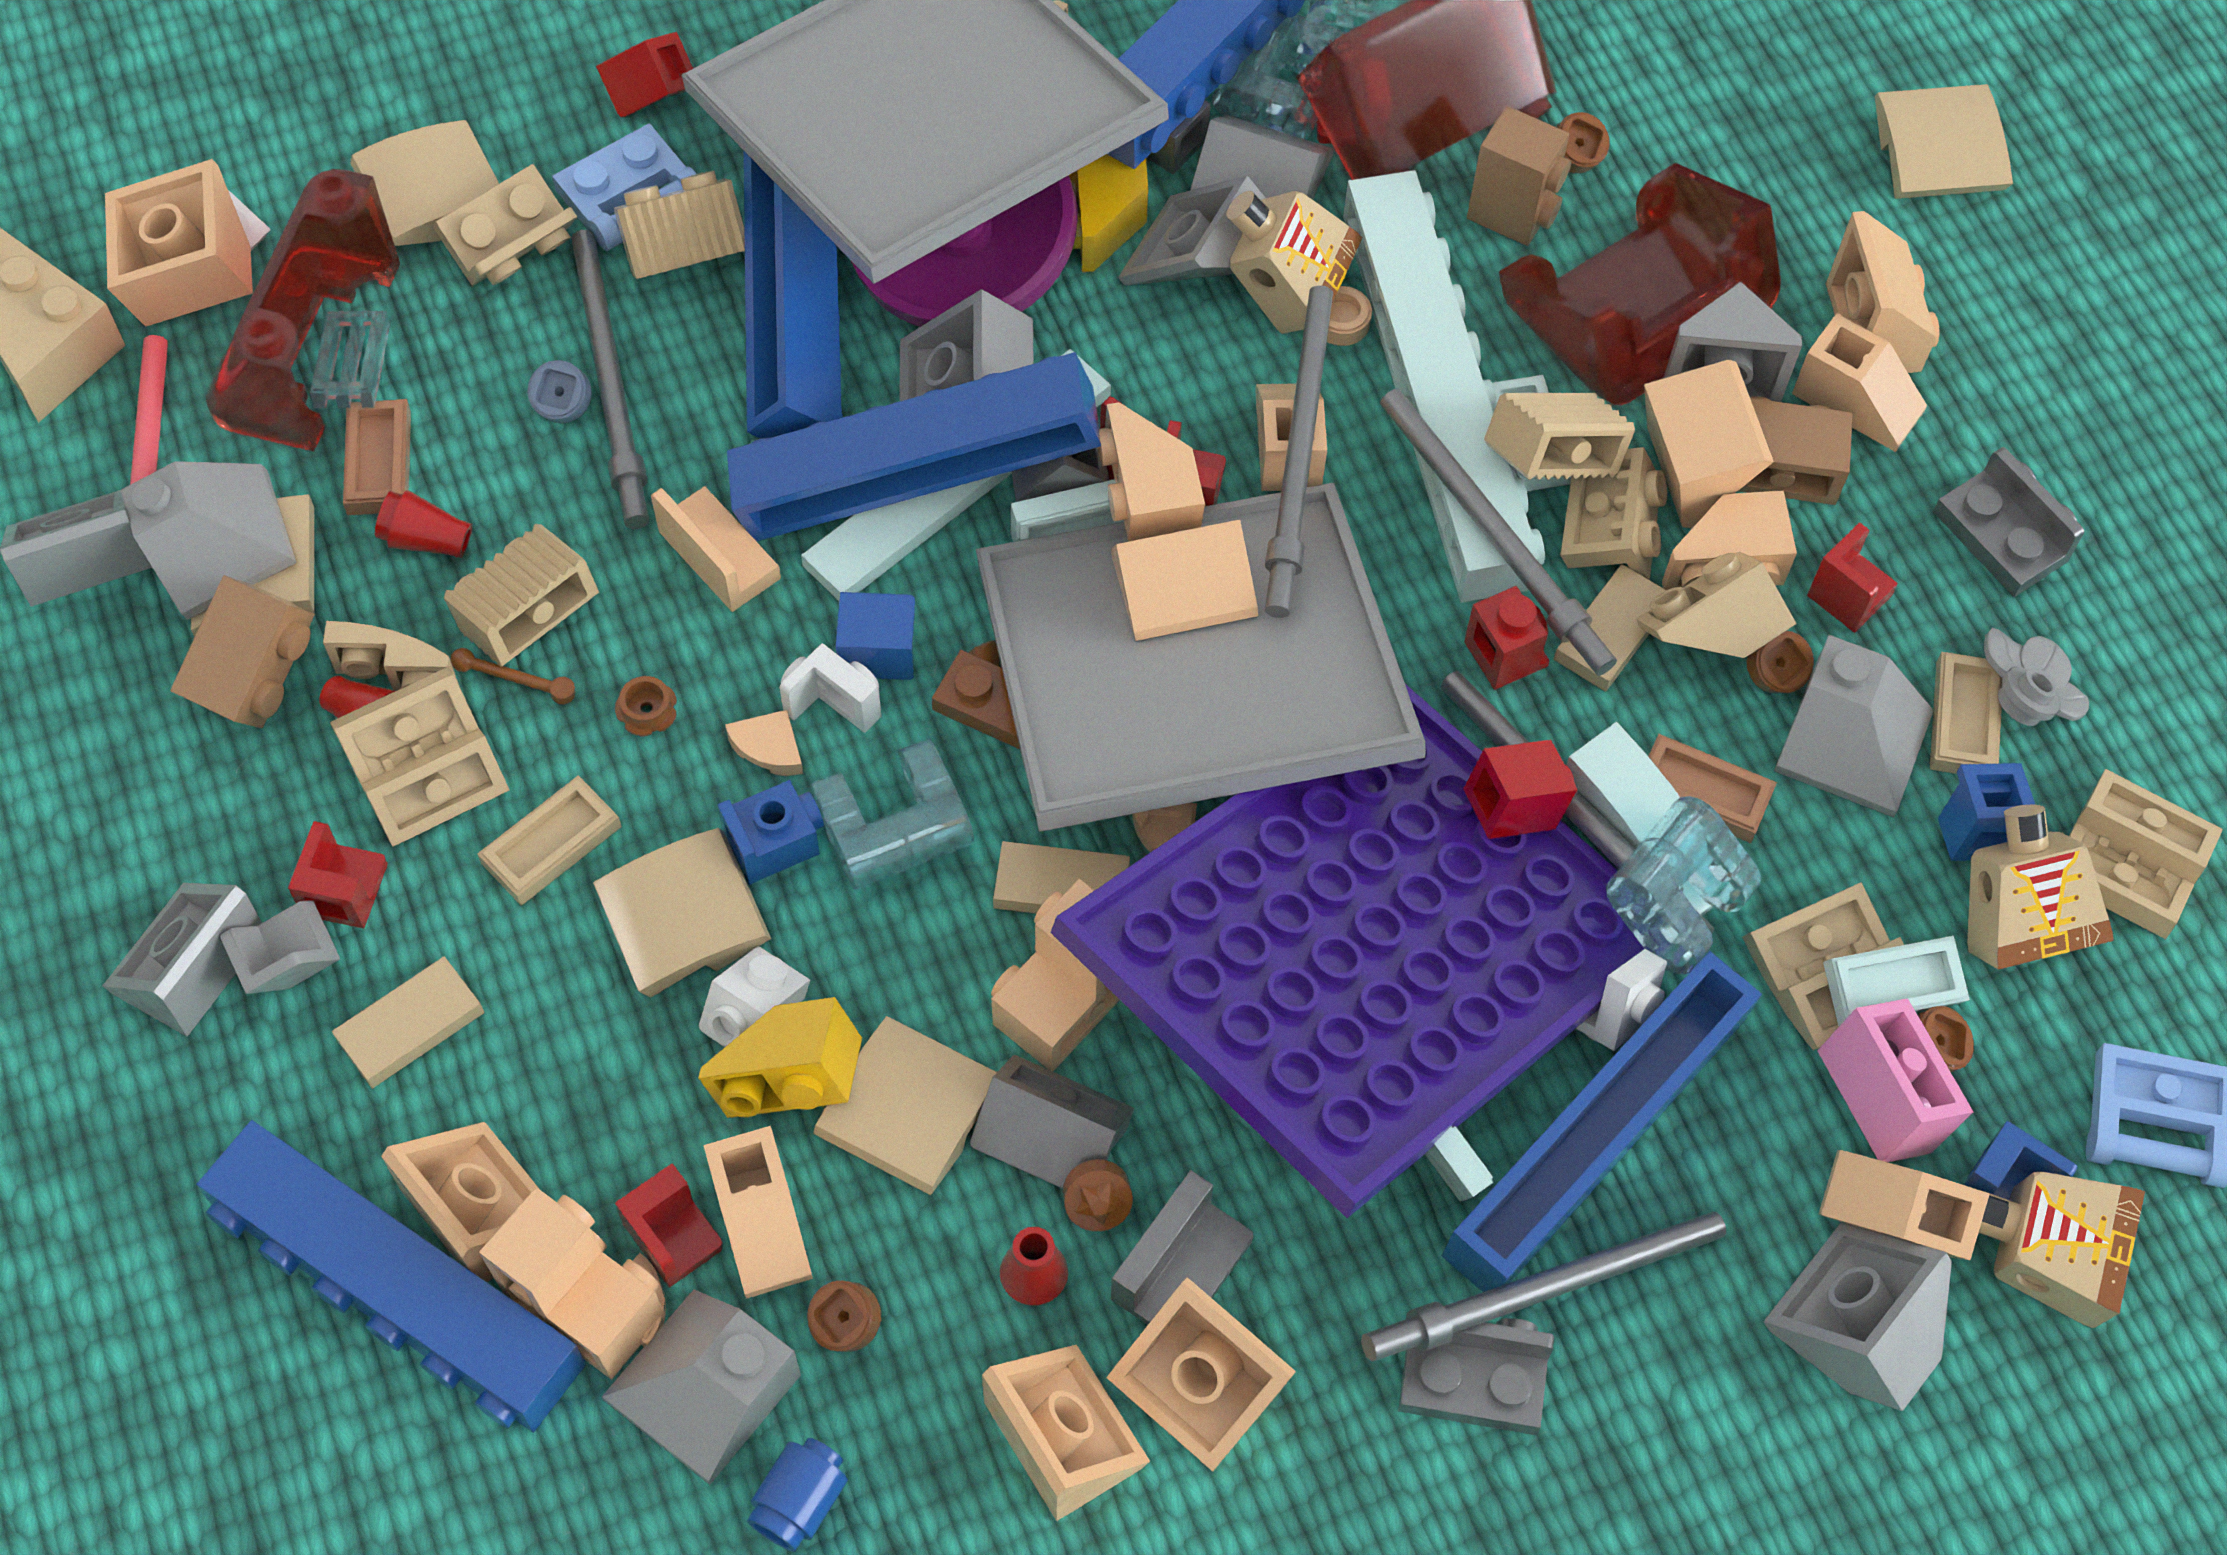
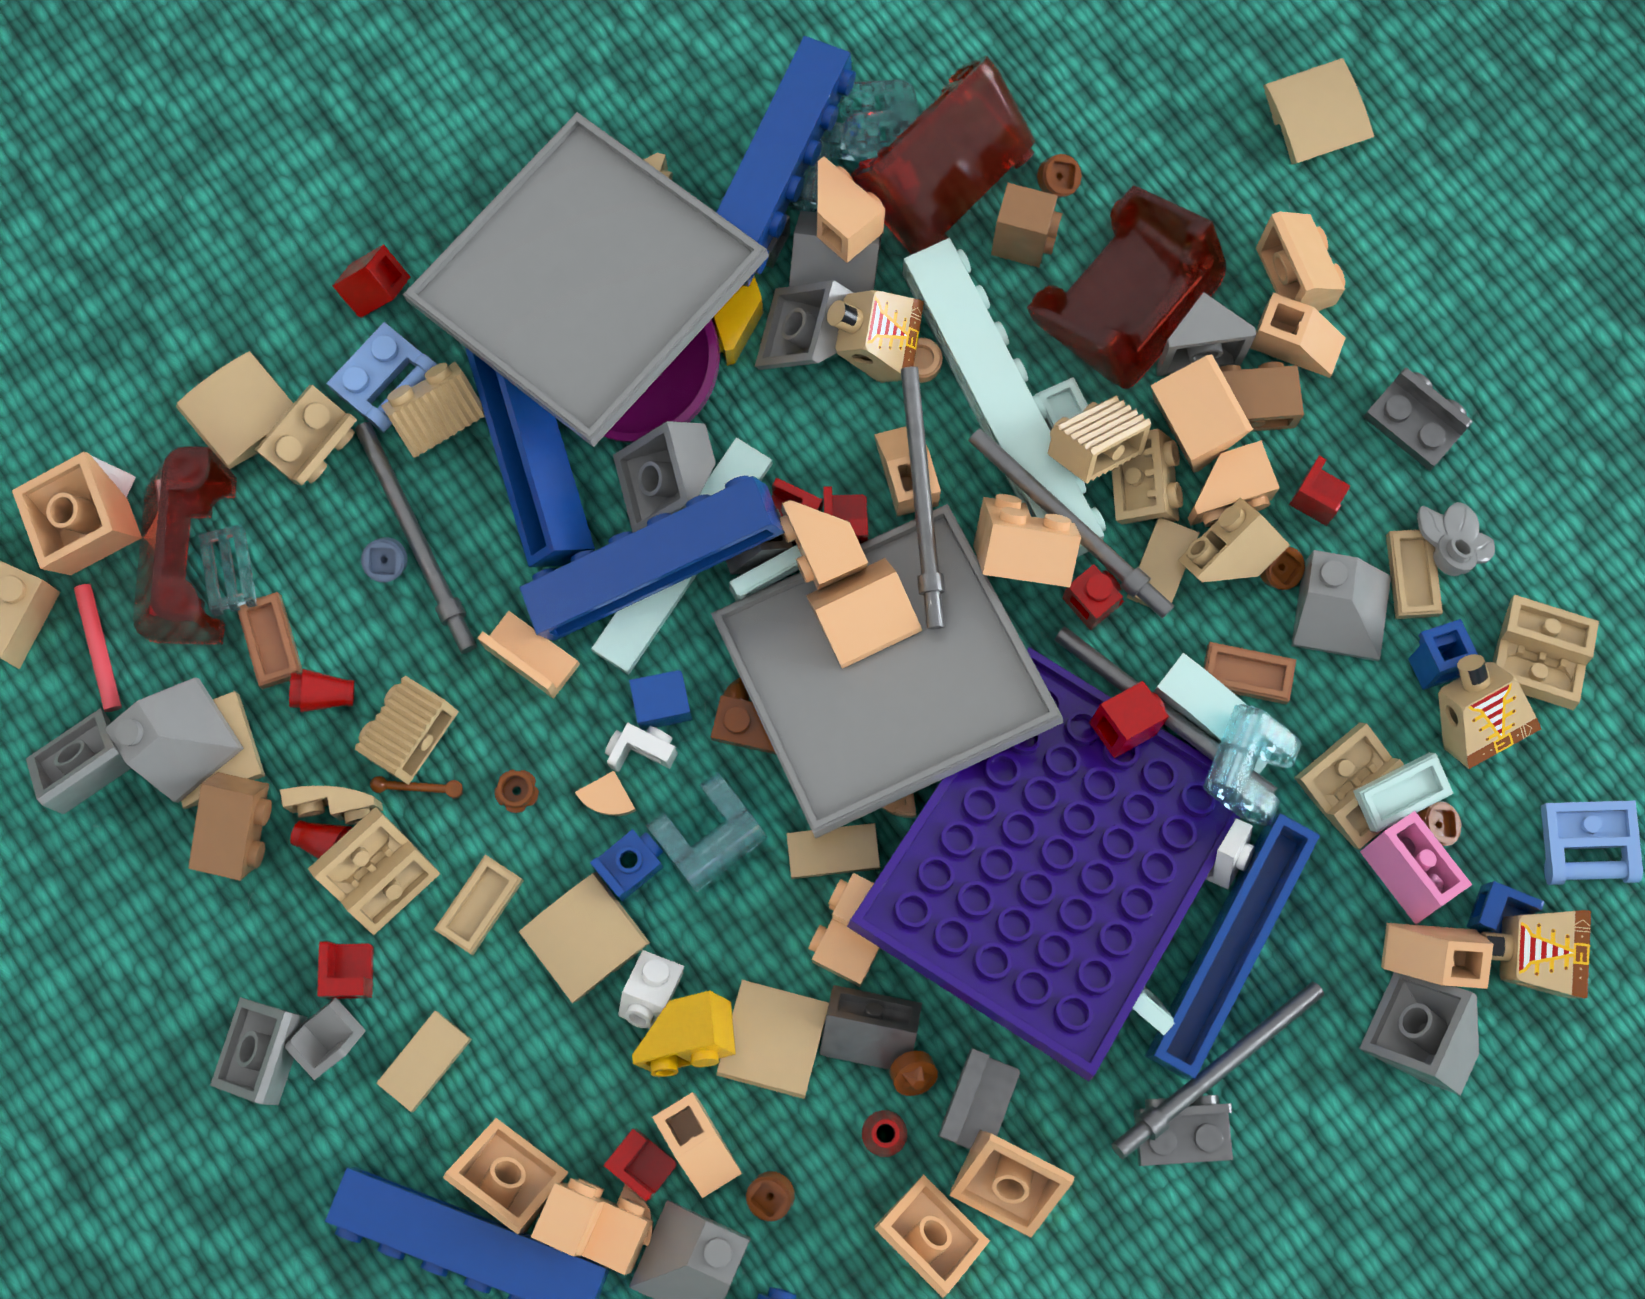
camera: 10 degrees left, 15 degrees up
(1285, 104) = (845, 212): none -> light nougat slope
(1431, 536) = (1024, 546): none -> light nougat brick

